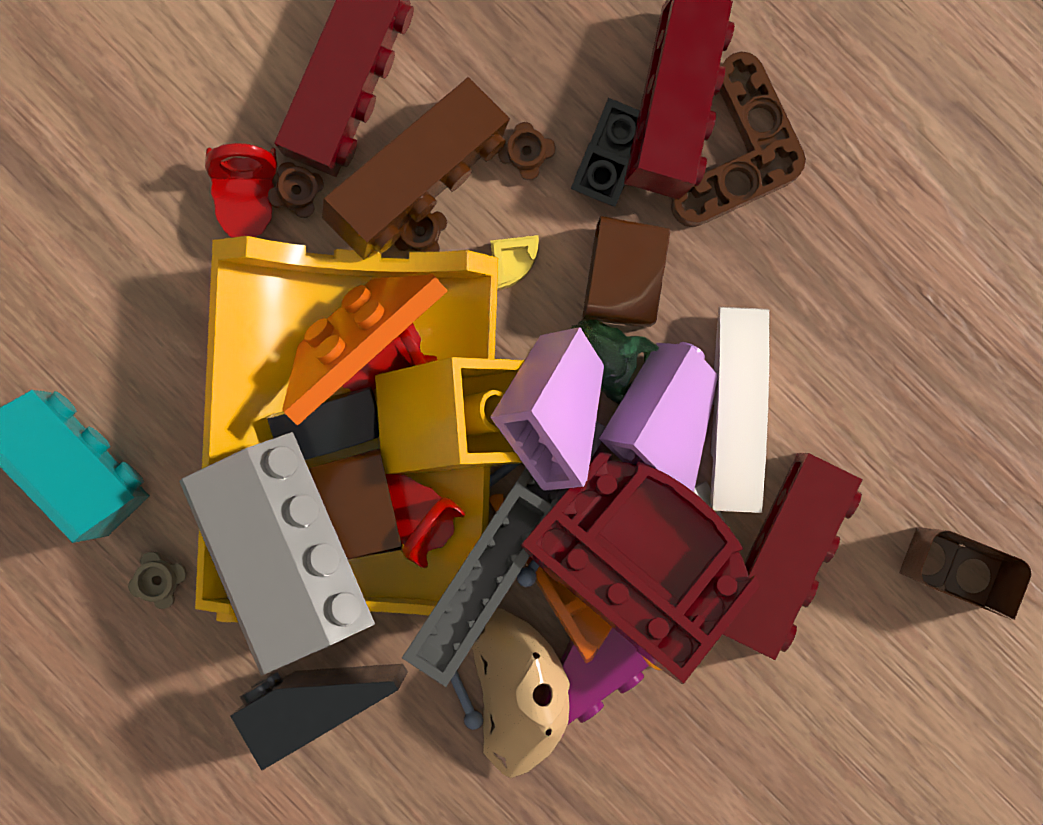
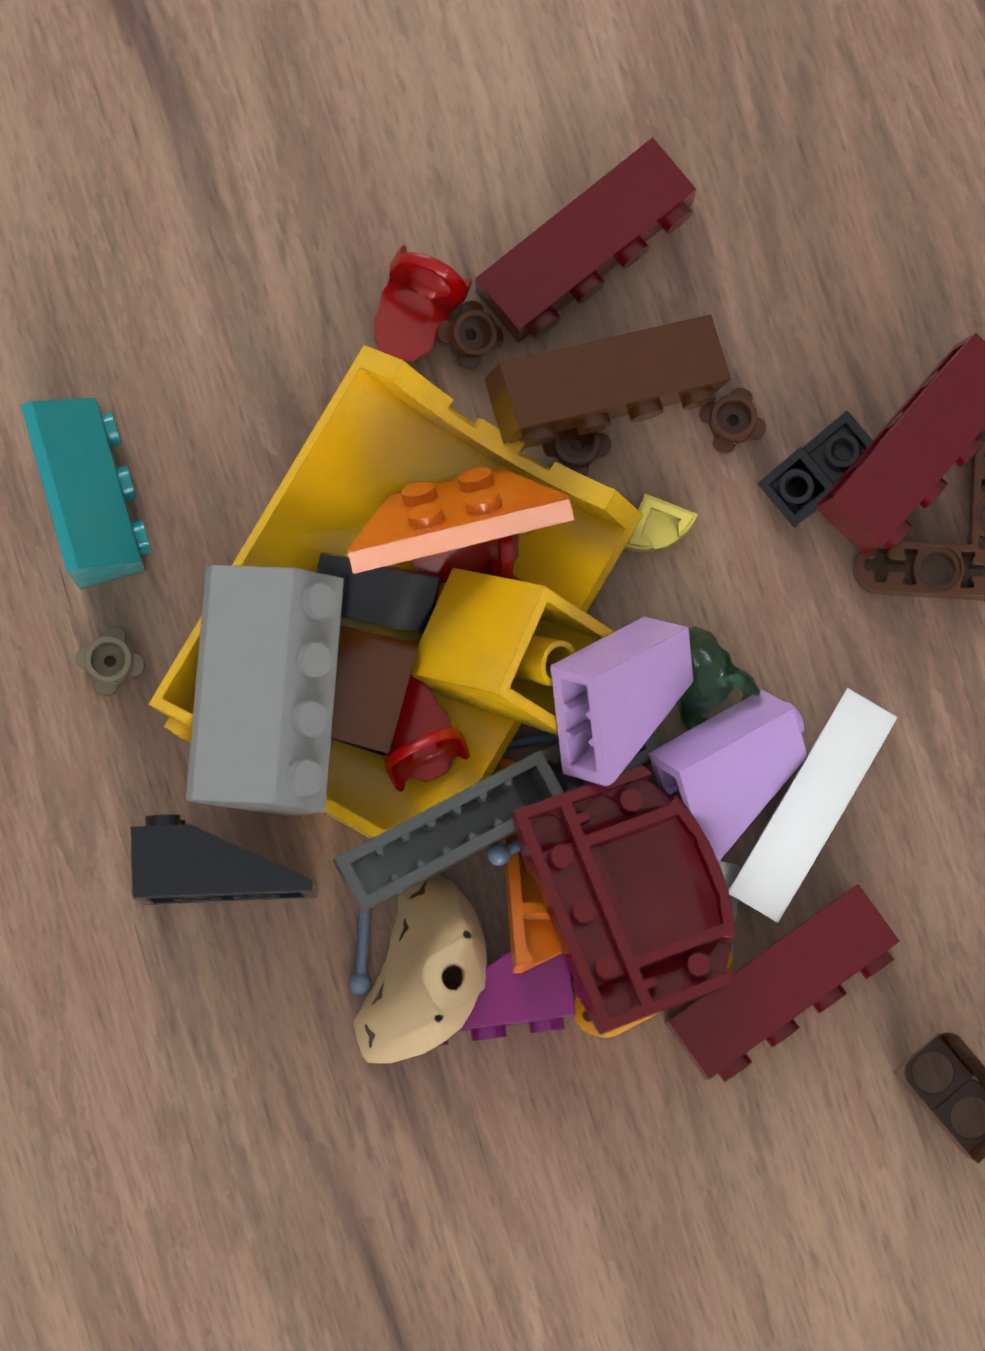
camera: 25 degrees right, 5 degrees down
(626, 272) = (767, 601): reddish brown piece -> none

